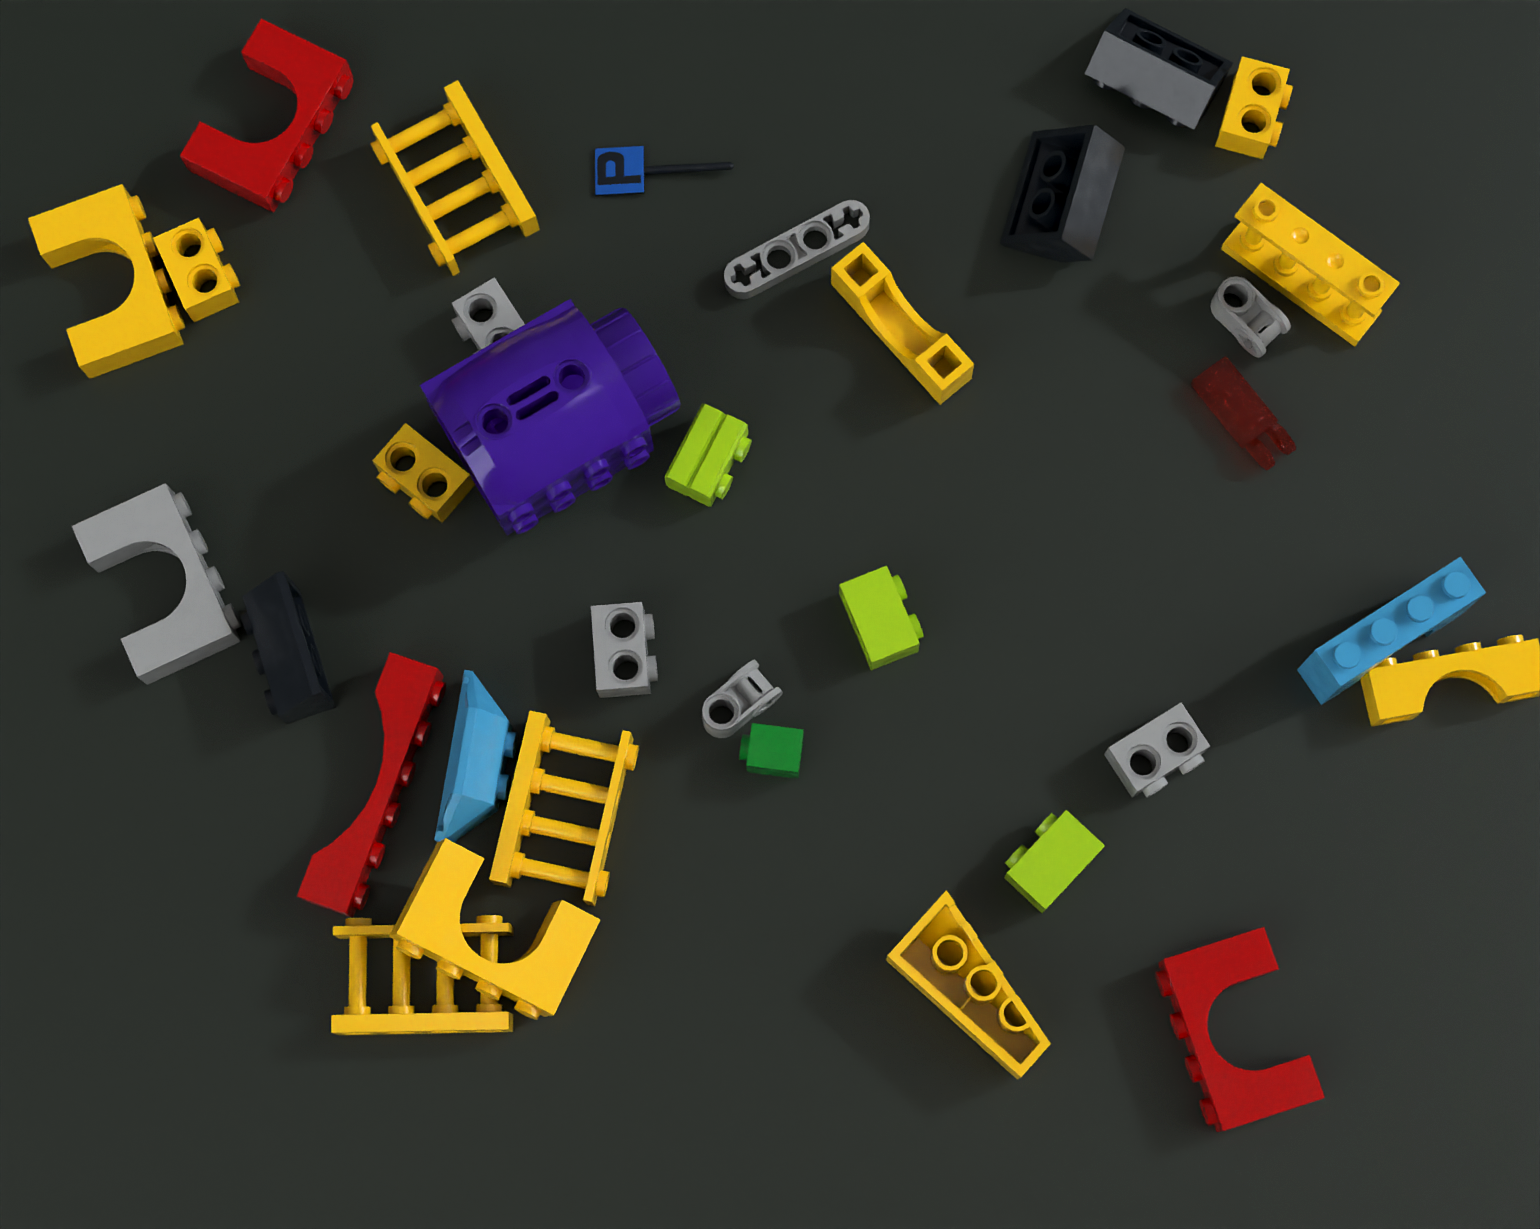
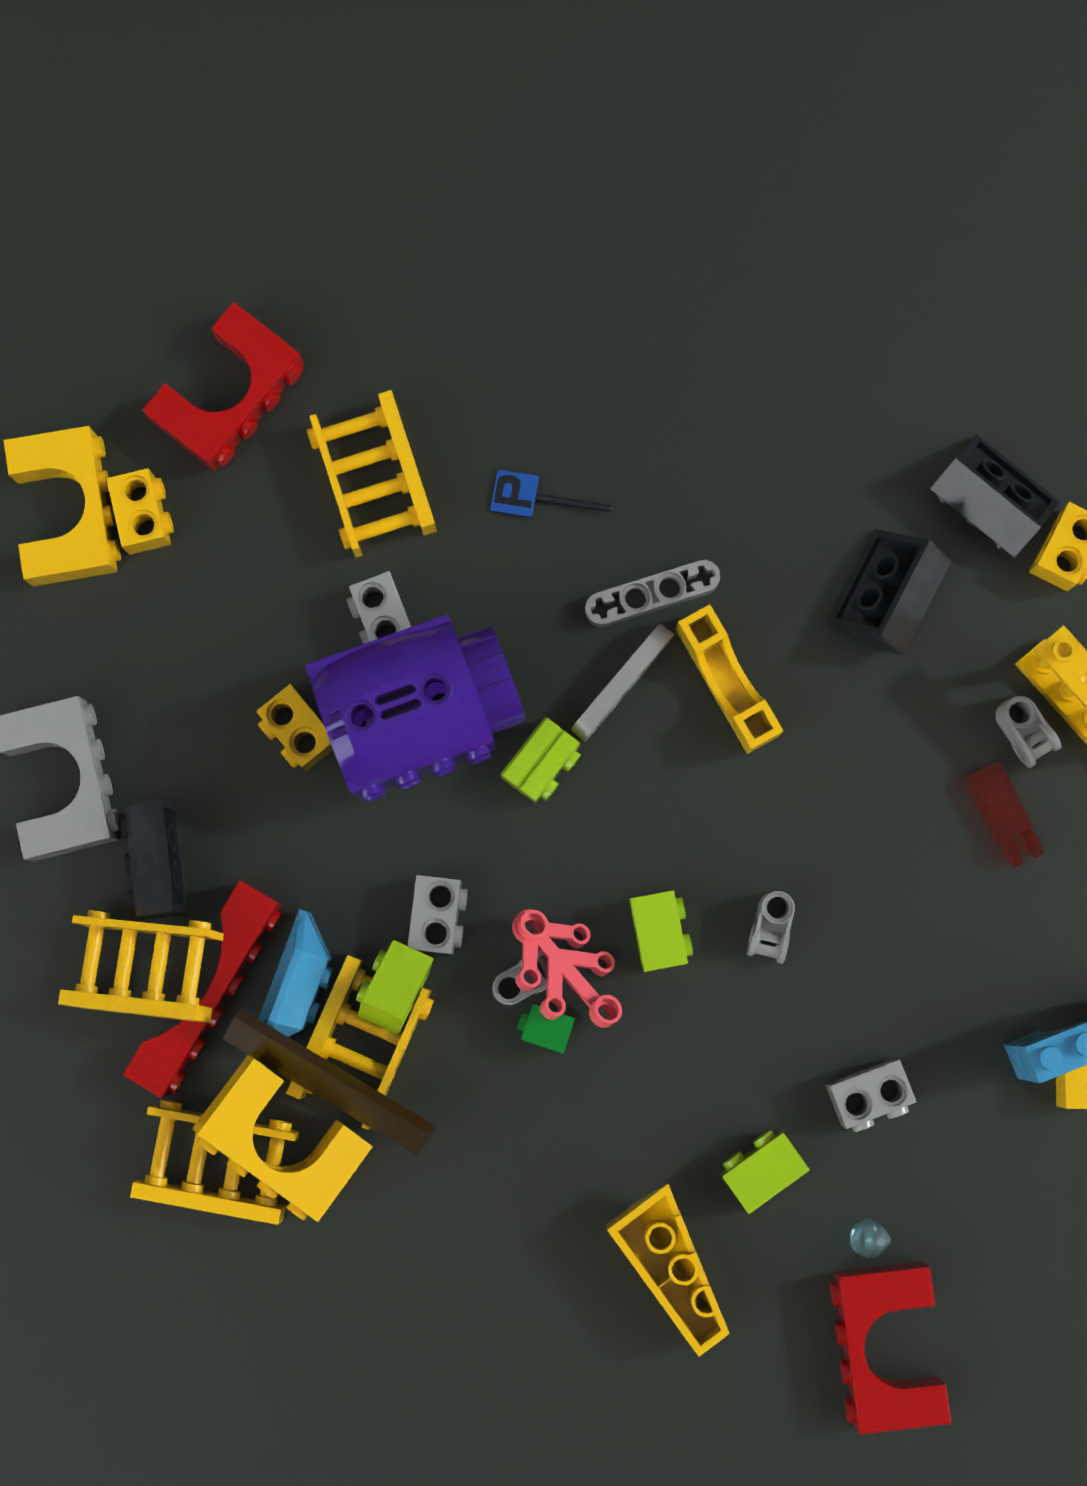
camera: 10 degrees right, 5 degrees up
(317, 805) = (153, 1000): none -> yellow fence
(536, 852) = (329, 1082): none -> dark brown tile
(589, 733) = (394, 987): none -> lime brick
(777, 674) = (561, 965): none -> coral plant
(782, 351) = (622, 682): none -> light grey beam
(1007, 595) = (771, 929): none -> light grey piece
(1189, 913) = (869, 1238): none -> clear light blue plate

